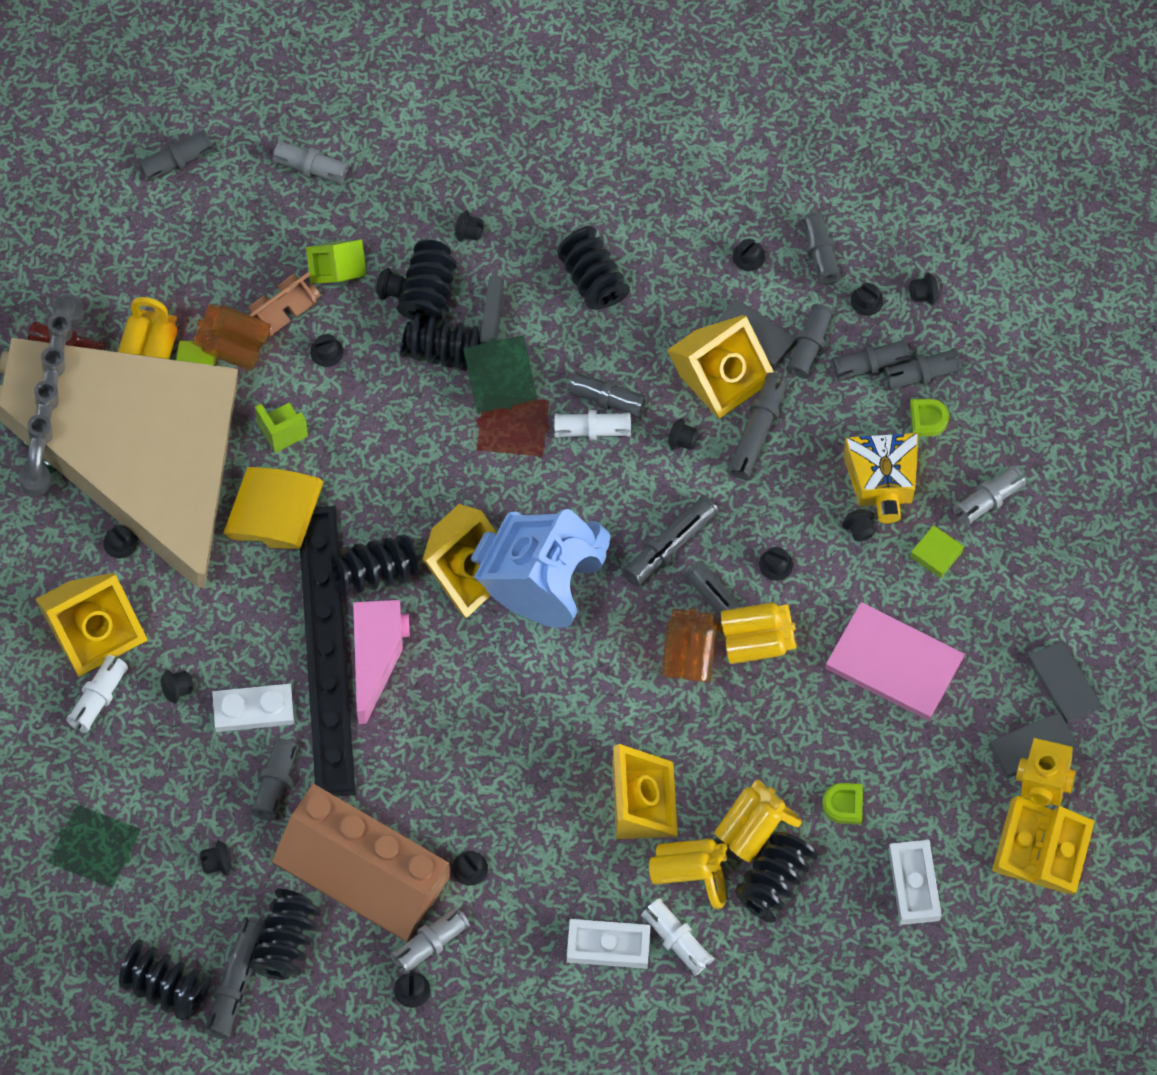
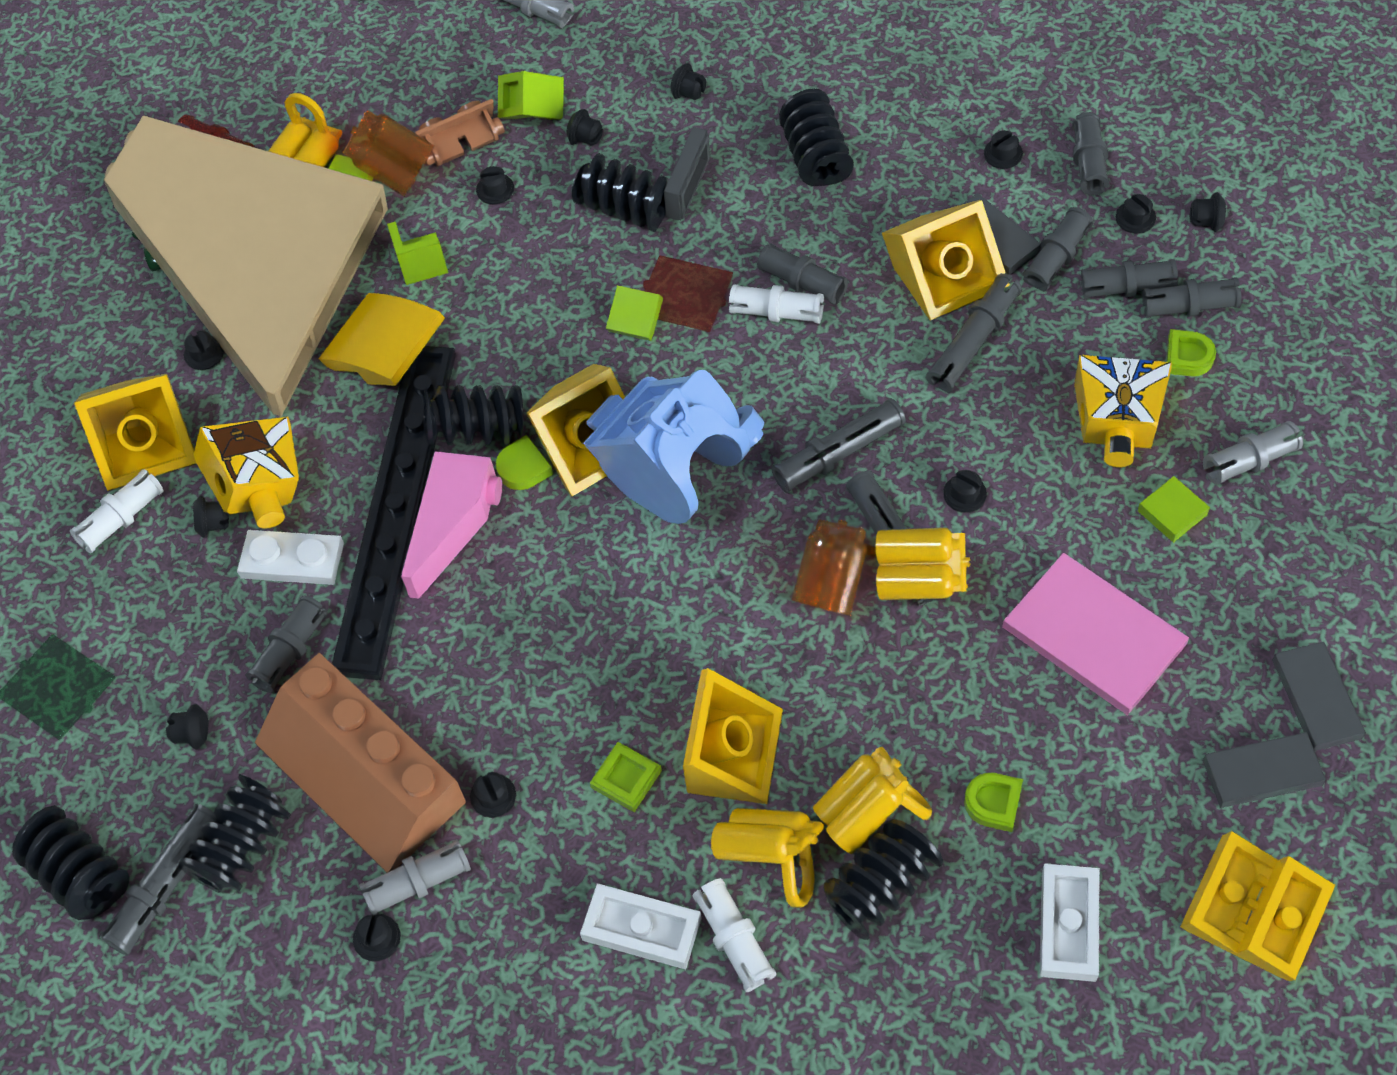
camera: 20 degrees right, 5 degrees down
(67, 313) = (197, 108): flat silver bar -> none
(203, 640) = (250, 467): none -> yellow torso
(420, 598) = (522, 465): none -> lime tile
(427, 281) = (624, 125): black piece -> none
(478, 451) = (634, 313): none -> lime tile
(500, 373) = (679, 230): clear green piece -> none
(567, 835) = (625, 776): none -> lime tile
(682, 435) = (881, 330): black piece -> none
(860, 524) = (1080, 461): black piece -> none
(1046, 773) = (1277, 807): yellow brick -> none

